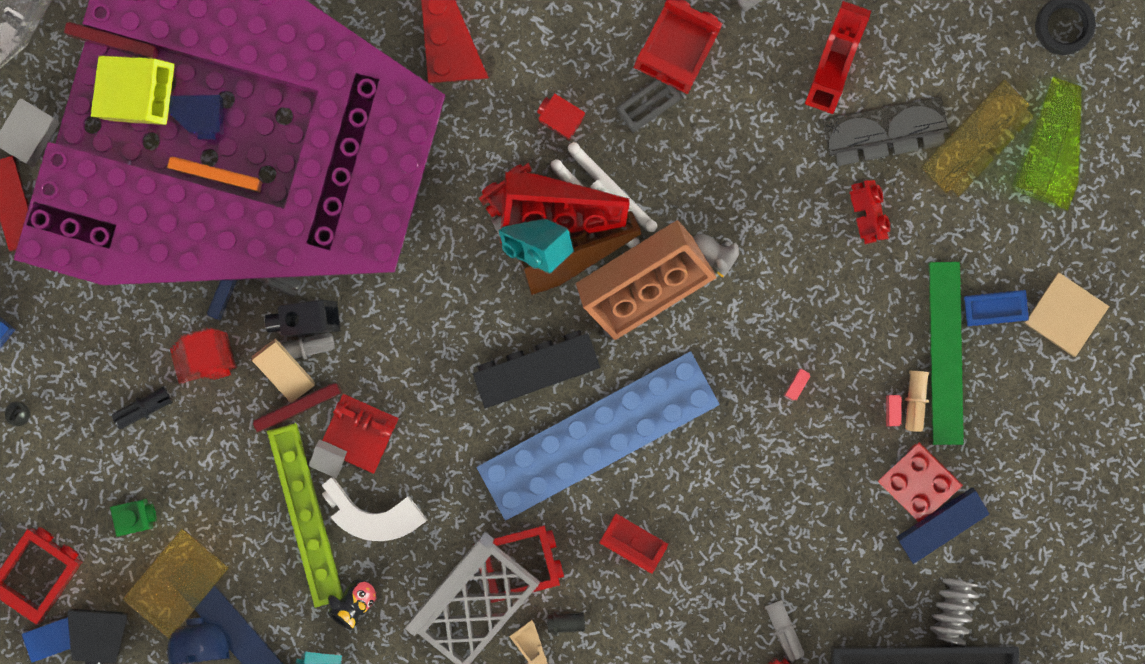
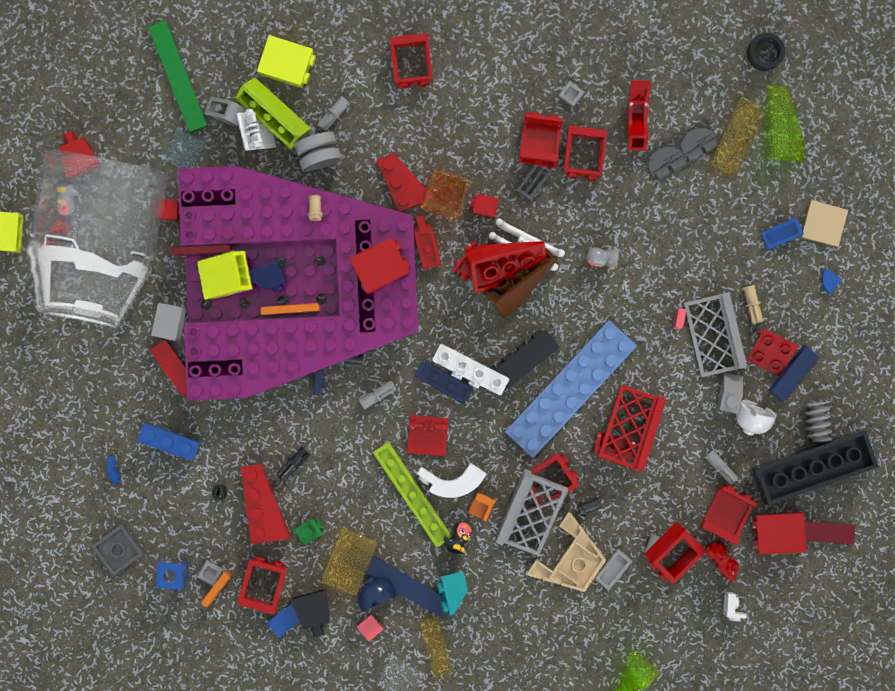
camera: 25 degrees left, 0 degrees up
(73, 458) = (263, 511): none -> red wedge
(203, 356) = (319, 420): red wedge -> none
(283, 370) = (370, 413): tan tile -> none
(297, 407) = (385, 432): dark red tile -> none
(301, 35) = (315, 208): none -> tan pin
(314, 318) = (378, 374): black torso -> none
(327, 458) = (414, 456): light grey tile -> none
(369, 153) = (380, 265): none -> red brick
(403, 567) = (481, 506): none -> orange panel
(409, 361) = (443, 382): none -> dark blue tile
(448, 349) = (475, 372): none -> white bracket
(453, 145) = (426, 244): none -> red hinge
(506, 78) = (445, 194): none -> clear orange brick
(537, 243) = (499, 286): teal slope -> none
(645, 280) = (568, 286): nougat slope -> none
(689, 542) = (648, 432): none -> red fence
(750, 57) = (588, 133): none -> red window
(836, 523) = (730, 393): none -> light grey slope
(859, 573) = (754, 419): none -> white cylinder
(870, 433) = (731, 329): none -> light grey fence
(874, 222) = (685, 194): red hinge -> none
(893, 410) = (741, 314): coral tile -> none
(946, 353) = (760, 270): green tile -> none
(1045, 404) = (830, 280): none -> blue tile

